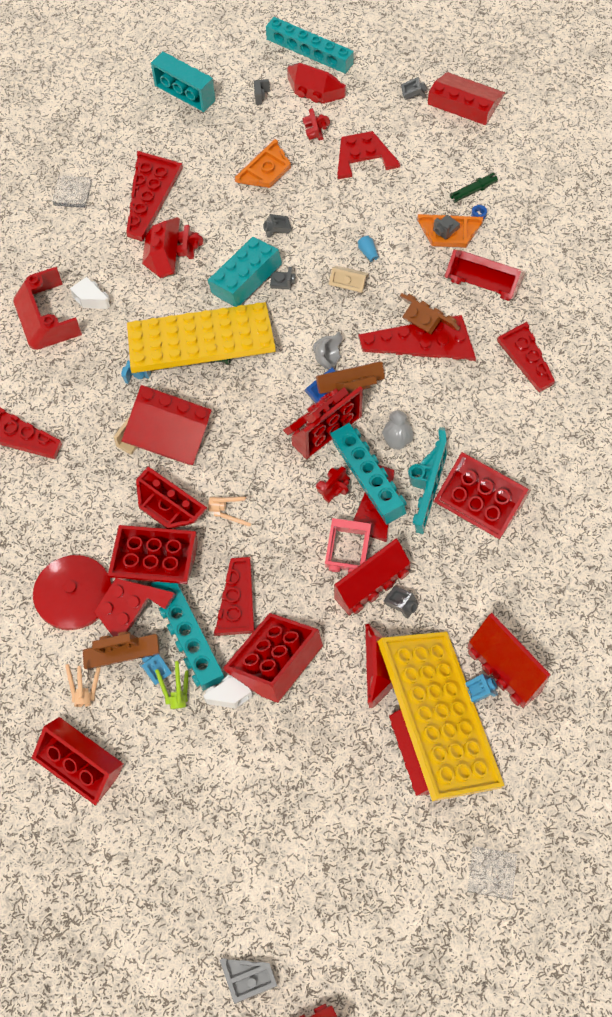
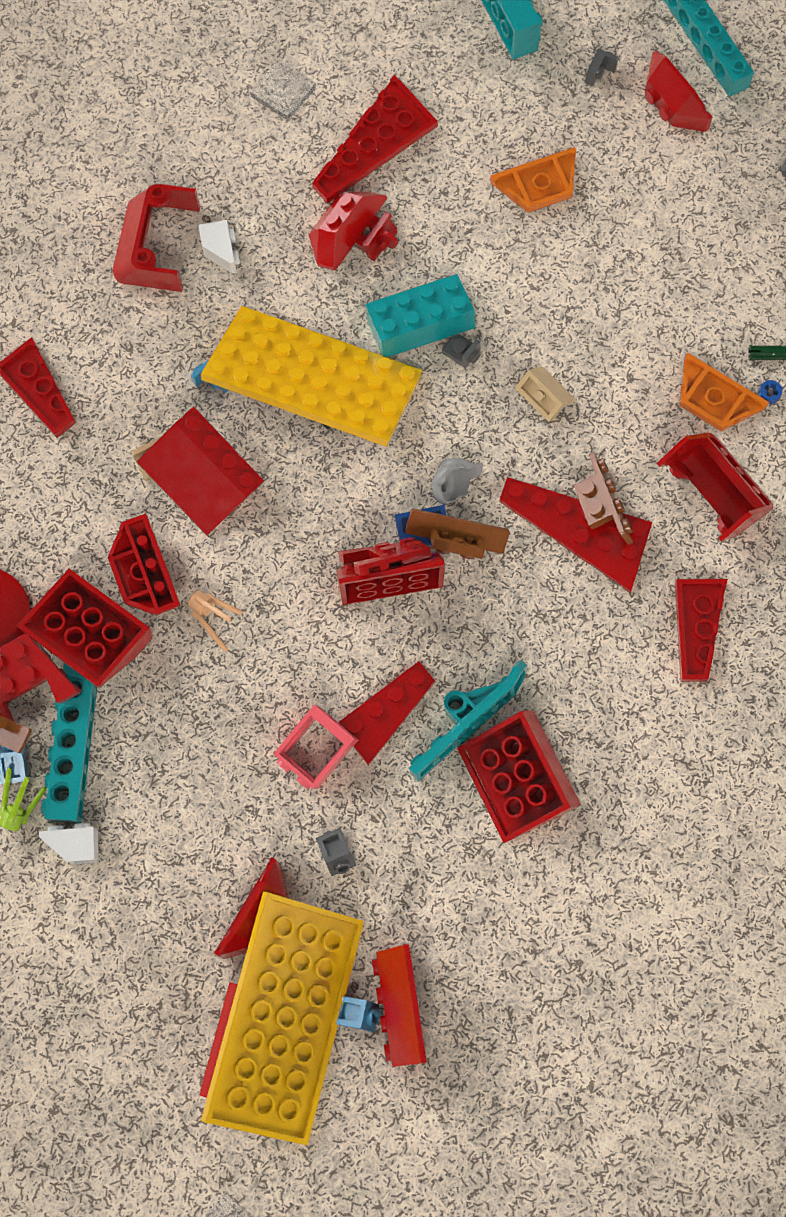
camera: 30 degrees right, 10 degrees up
(237, 600) = (148, 741): red wing -> none
(274, 656) = (145, 832): red slope -> none
(276, 223) = (502, 270): dark grey bracket -> none
(317, 123) = (643, 154): red hips -> none
(335, 485) = (353, 659): red hips -> none
(362, 148) = (676, 217): red wing -> none
(368, 248) = (595, 364): dark azure cone -> none
(371, 578) = (315, 805): red slope -> none
(388, 510) = (387, 733): teal brick -> none
(398, 430) = (472, 633): light grey hair -> none
(445, 226) = (709, 391): dark grey bracket -> none

